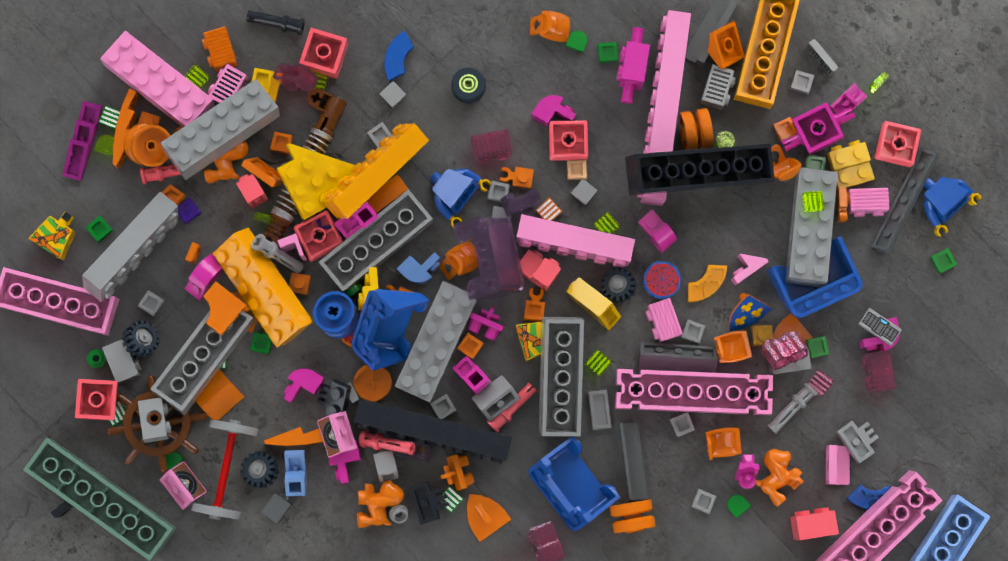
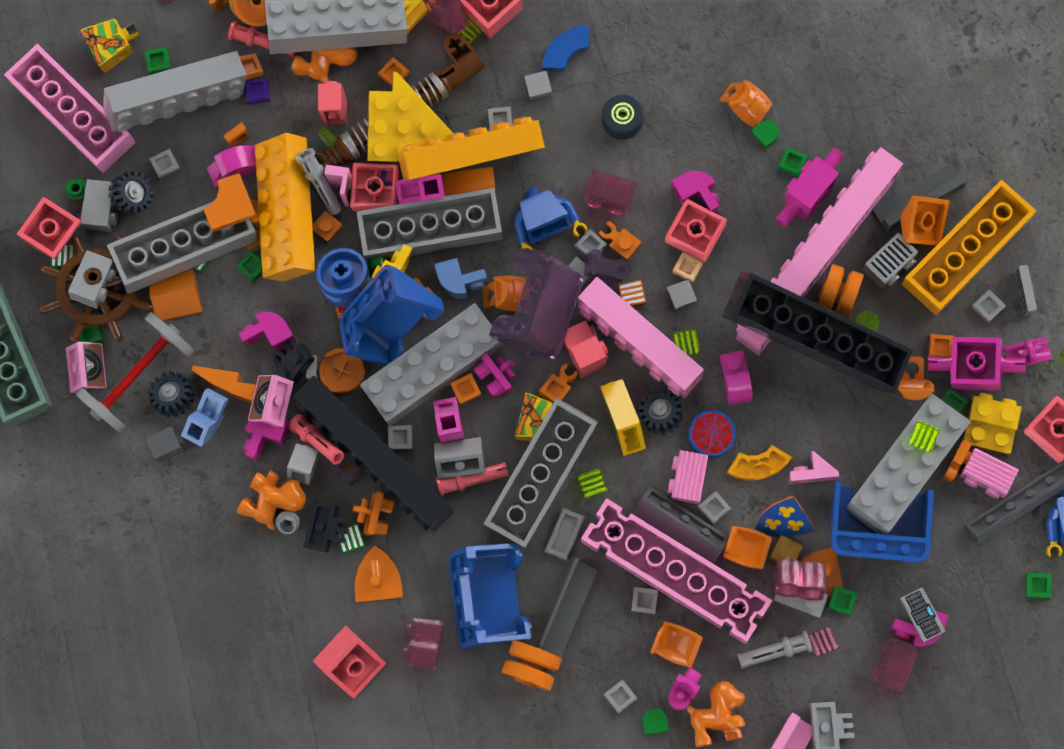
camera: 45 degrees right, 5 degrees down
(263, 171) = (354, 88): orange tile -> none

